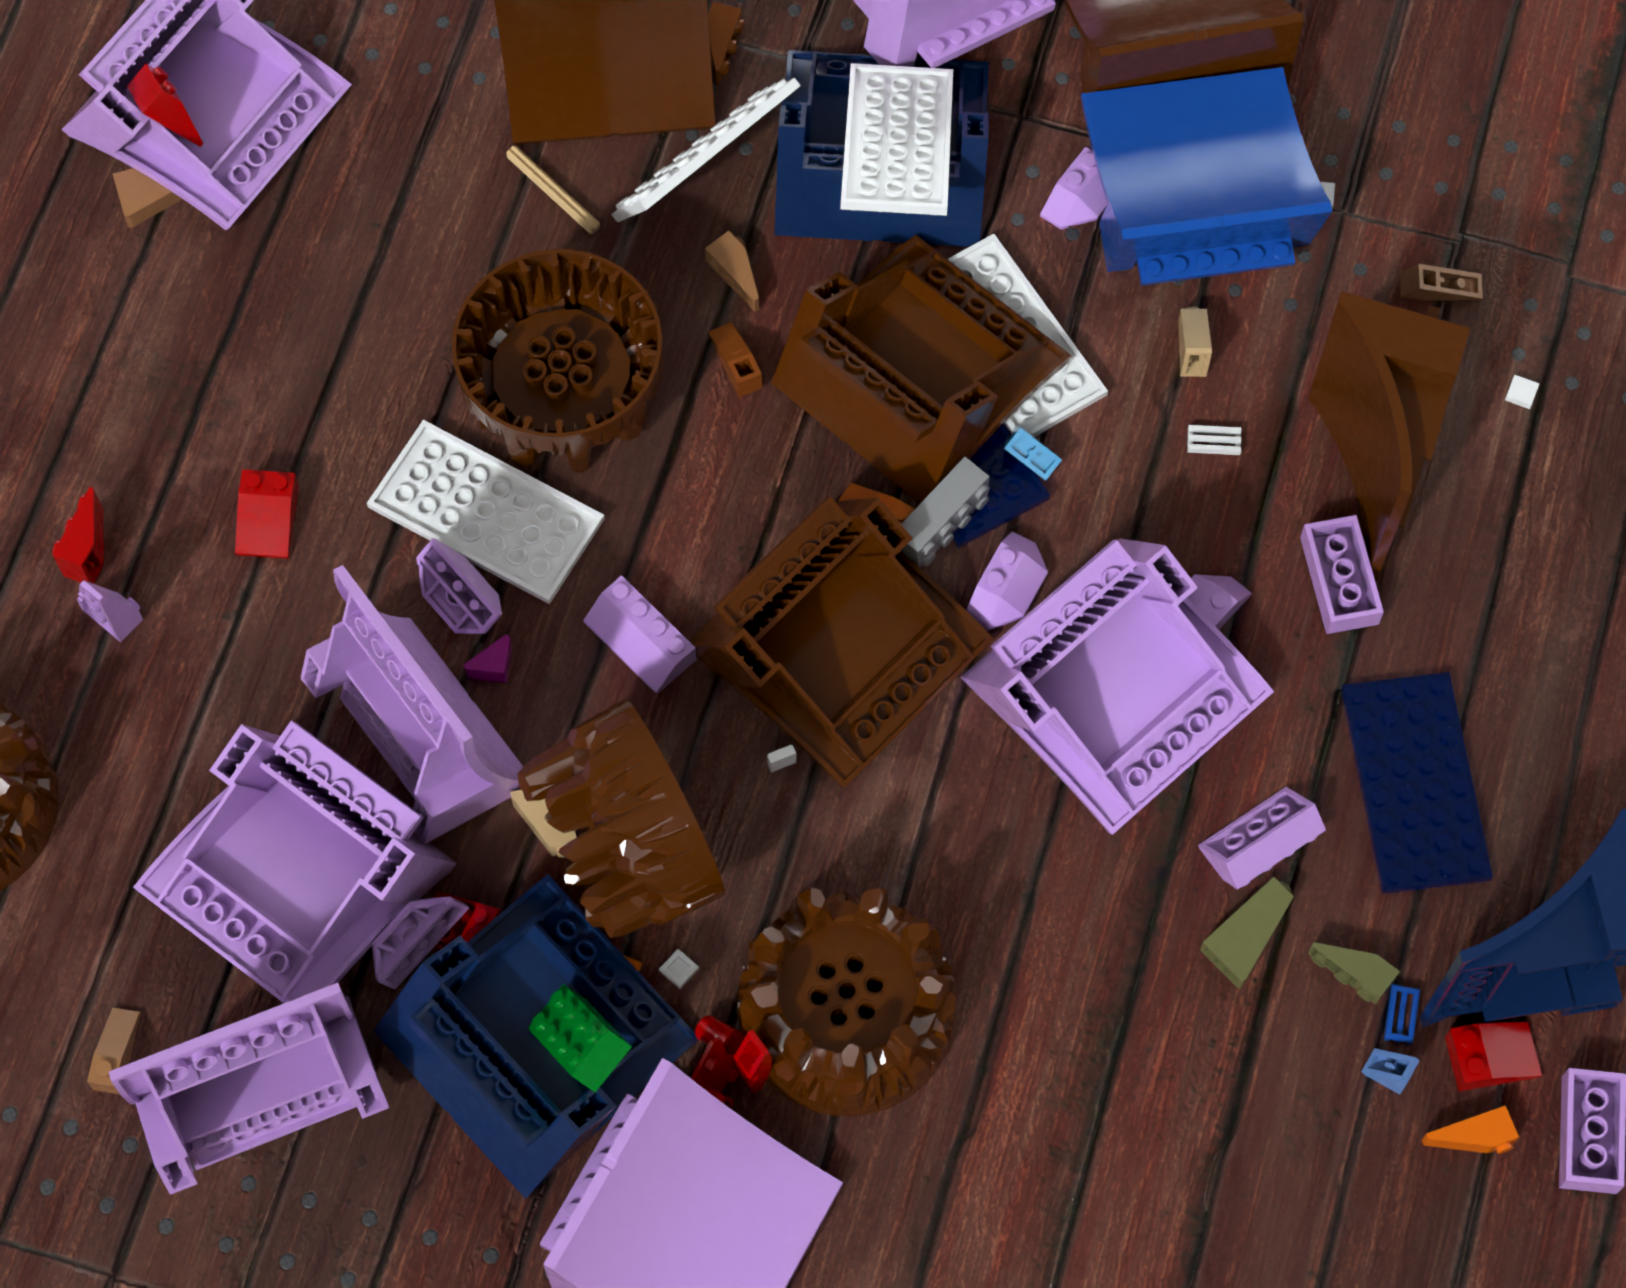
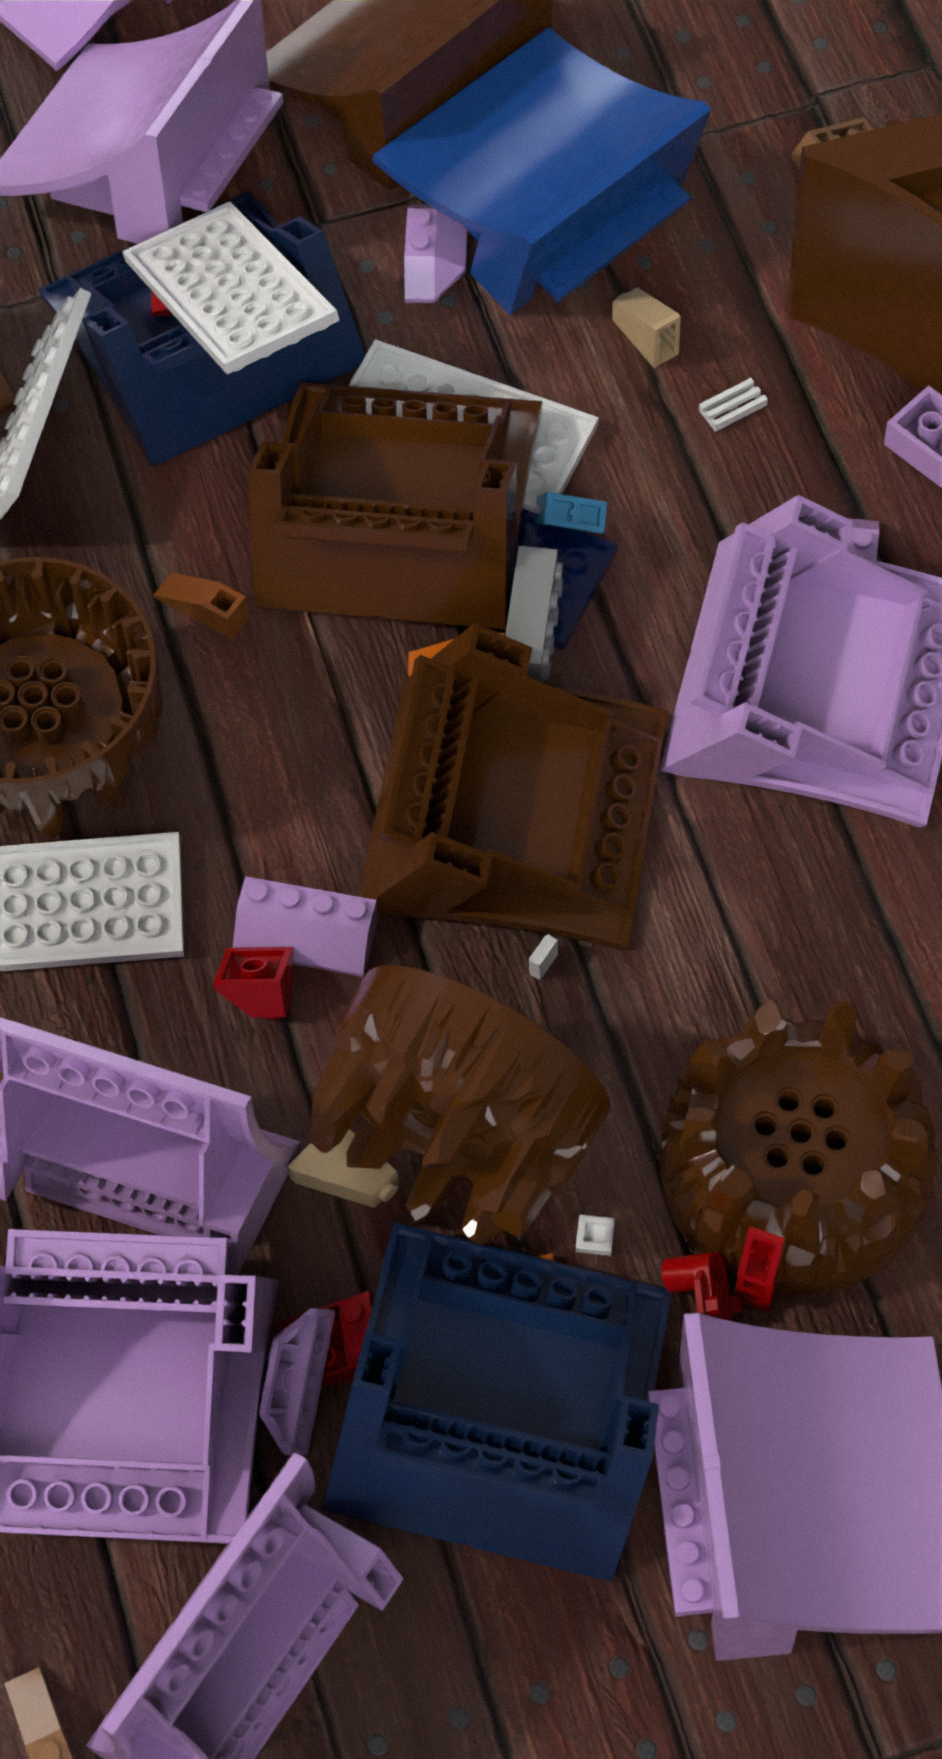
camera: 30 degrees left, 5 degrees down
(457, 589) = (77, 1000): lavender wedge -> none
(491, 663) = (169, 1046): magenta slope -> none
(579, 1037) = (567, 1359): green brick -> none
(582, 651) = (257, 980): none -> red slope
(730, 261) = (132, 516): medium nougat slope -> none
(1008, 583) = (641, 651): lavender wedge -> none

